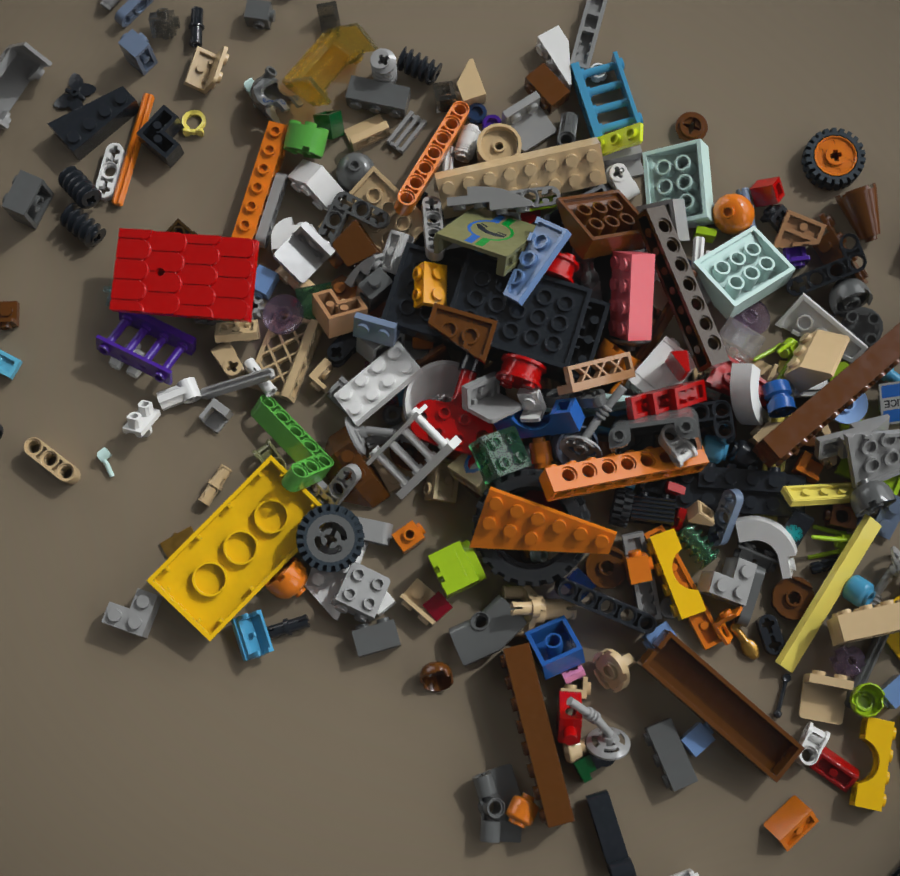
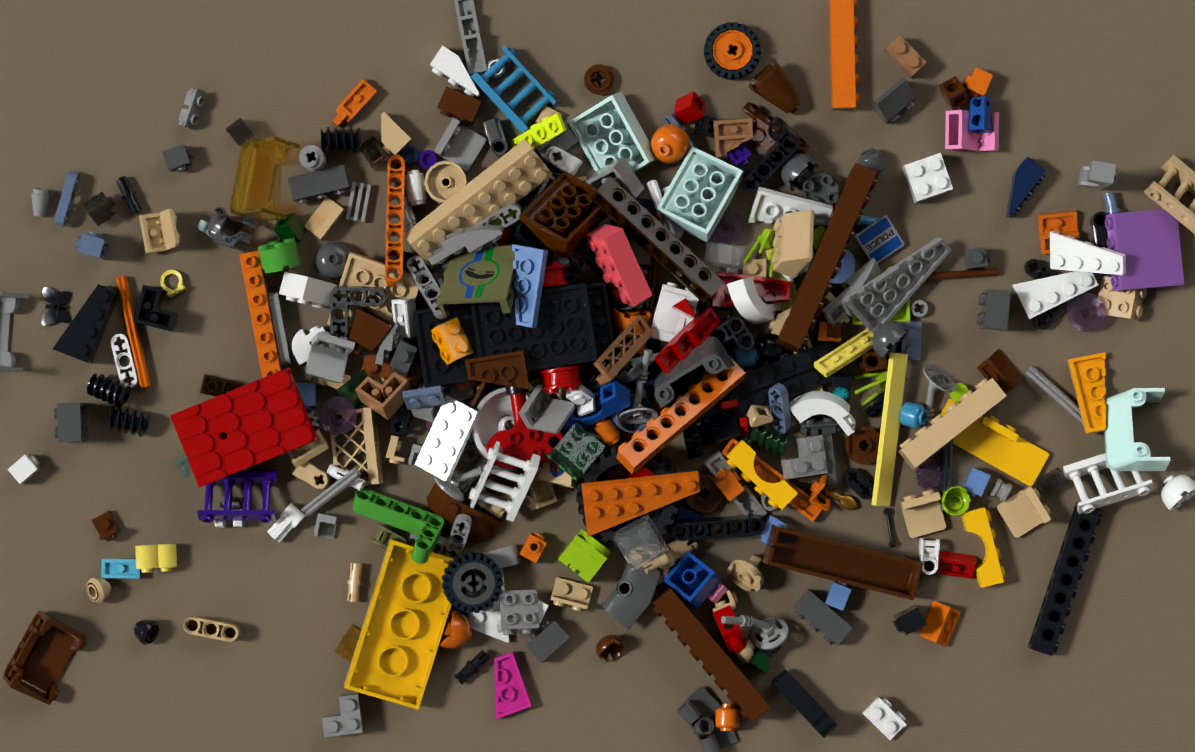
camera: 30 degrees left, 10 degrees up
(36, 364) = (156, 556): none -> light yellow brick
(103, 455) = (250, 603): light aqua hand -> none
(142, 420) = (268, 560): white hips -> none
(252, 635) = (448, 687): dark azure hinge -> none
(313, 669) = (509, 686): none -> dark pink wing
(437, 606) = (584, 592): dark red tile -> none
(448, 41) = (354, 102): none -> orange hinge
(520, 578) = (640, 542): none -> clear brick
(676, 447) = (714, 379): white piece -> none
(708, 233) = (652, 172): lime tile -> none
(762, 802) = (909, 620): none -> black brick
(779, 398) = (777, 290): blue wheel -> none

